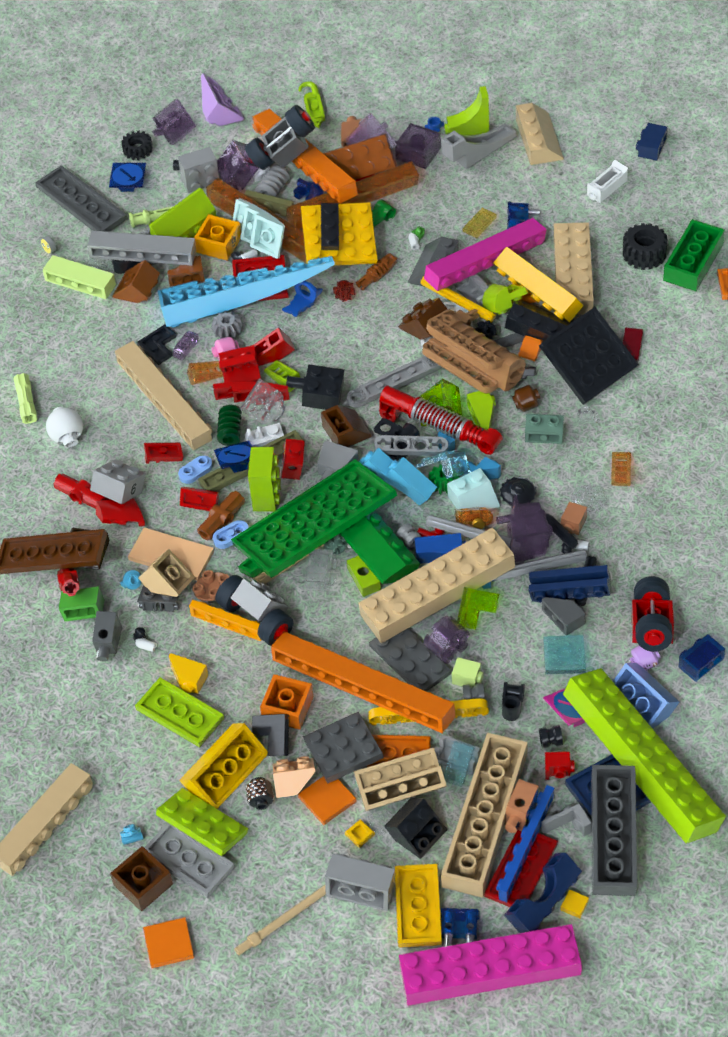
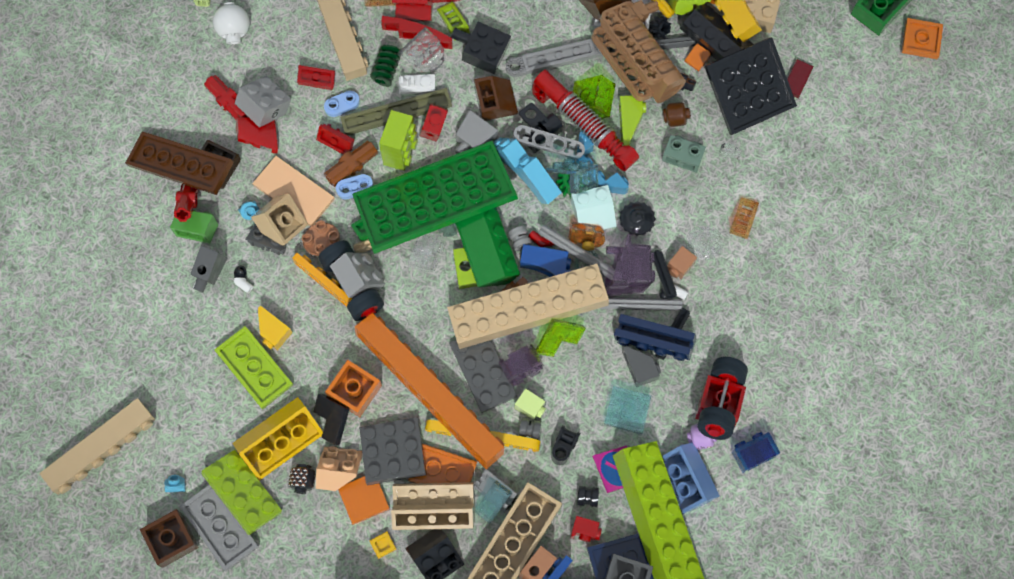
camera: 10 degrees right, 20 degrees up
(234, 456) = (381, 101): piece -> none

